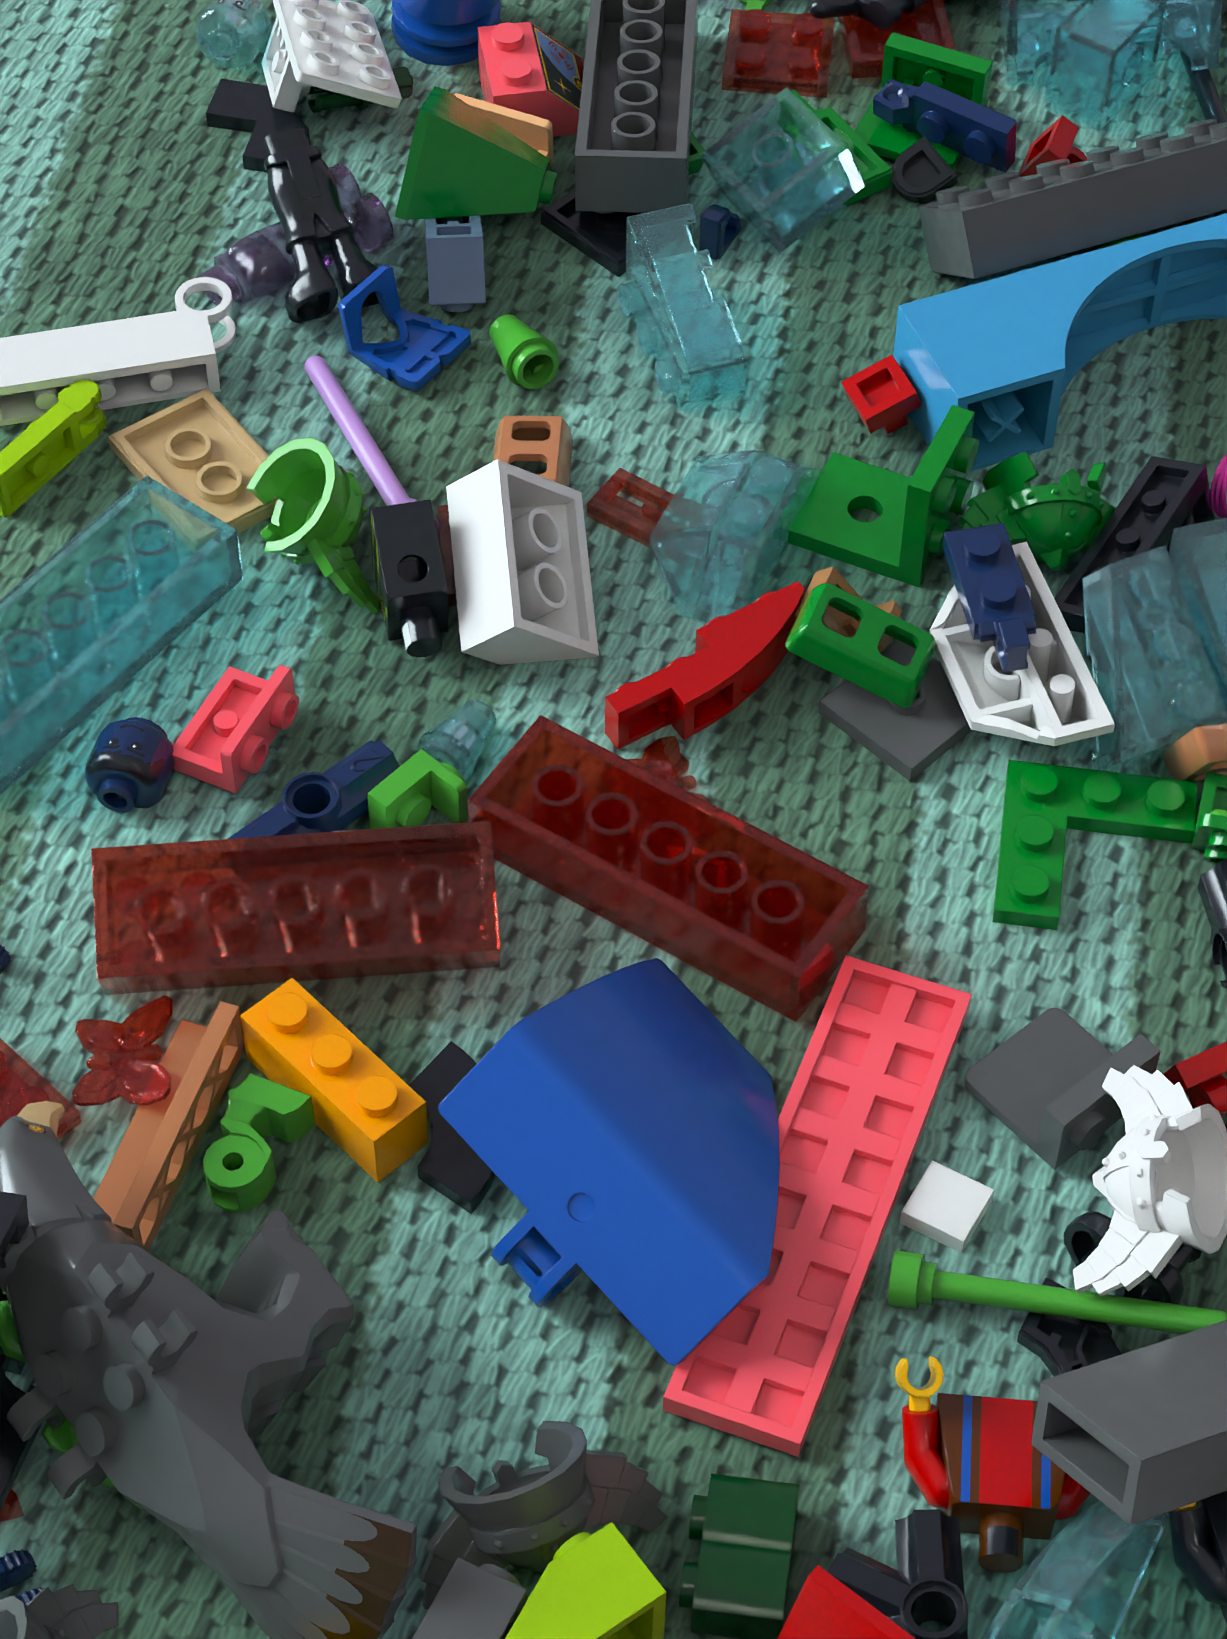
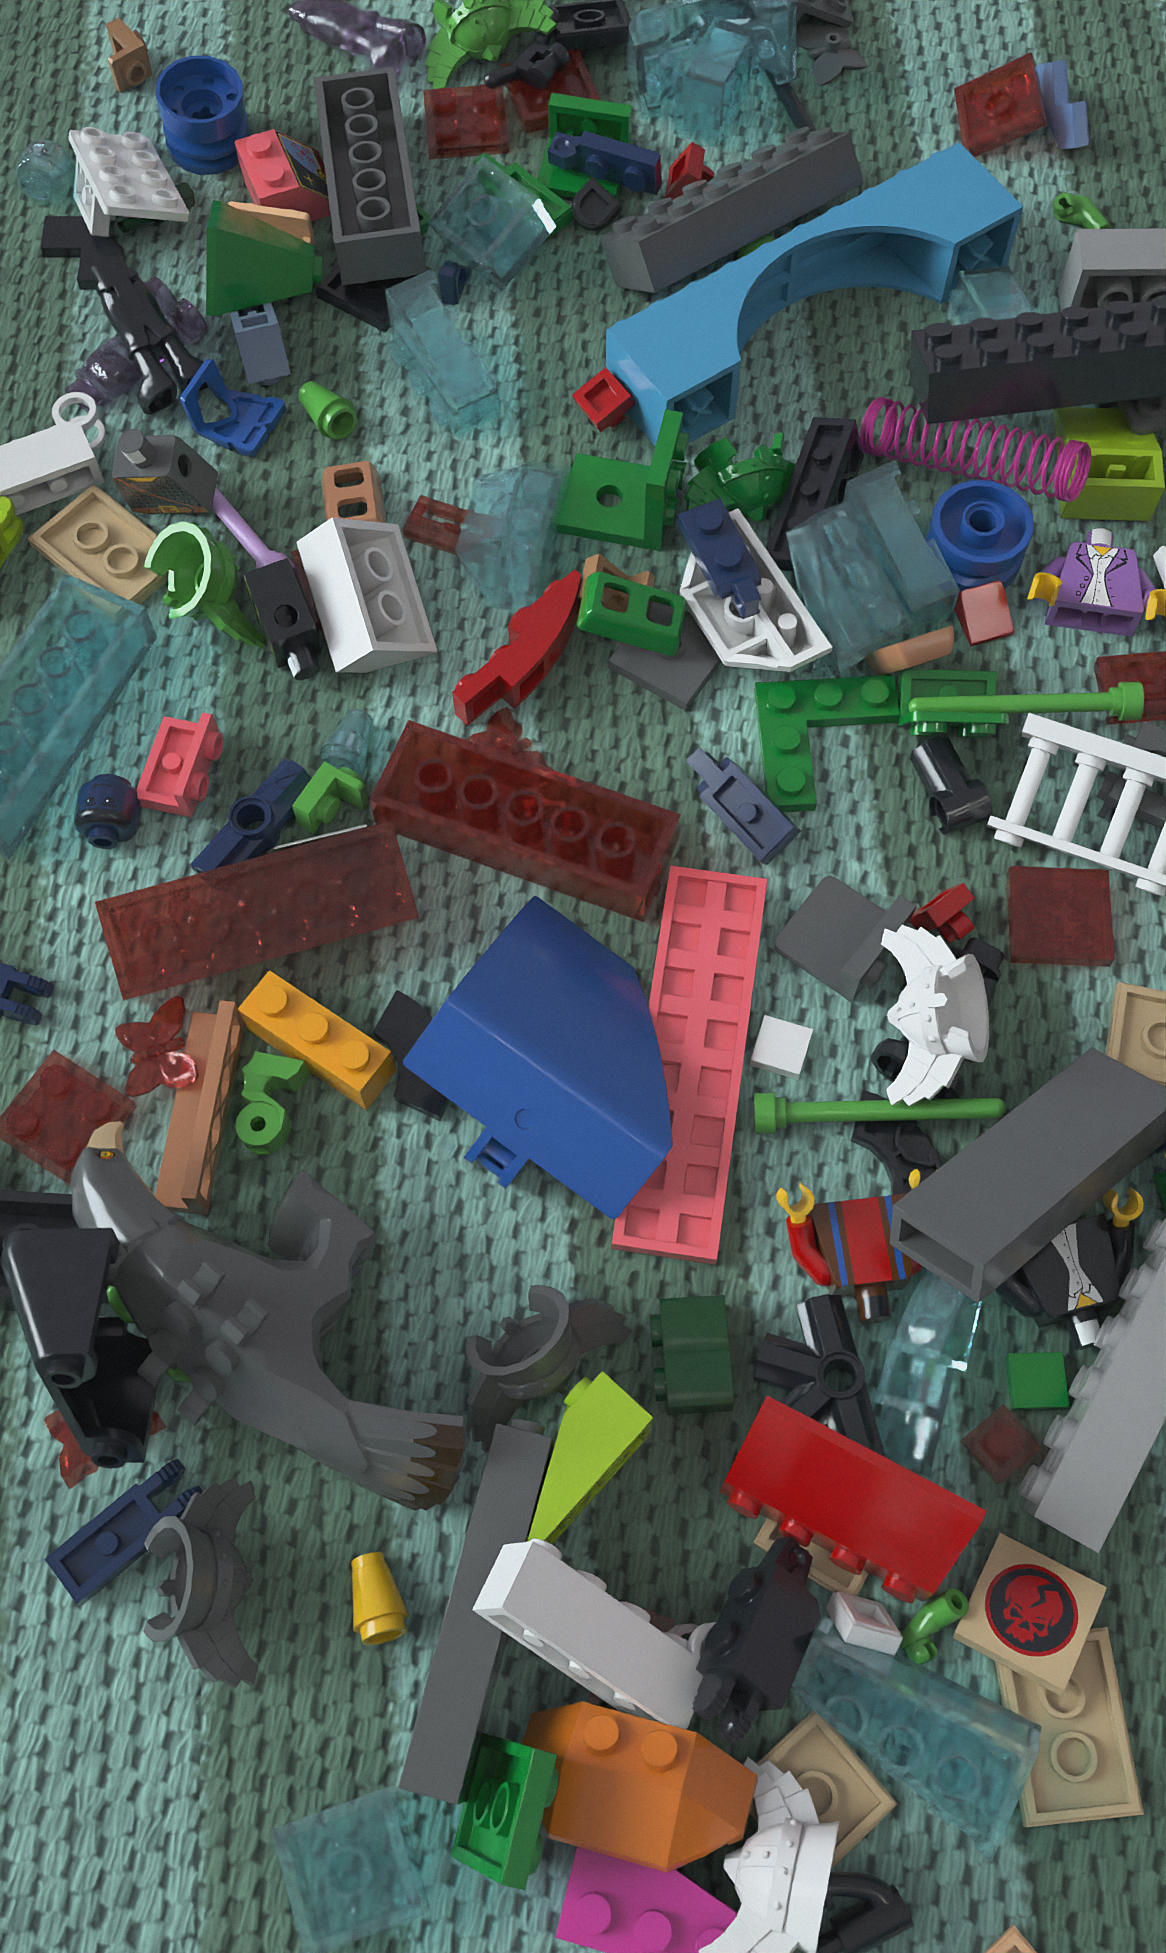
camera: 10 degrees left, 15 degrees up
(295, 387) = (162, 475): none -> dark grey torso
(959, 903) = (743, 806): none -> dark blue hinge

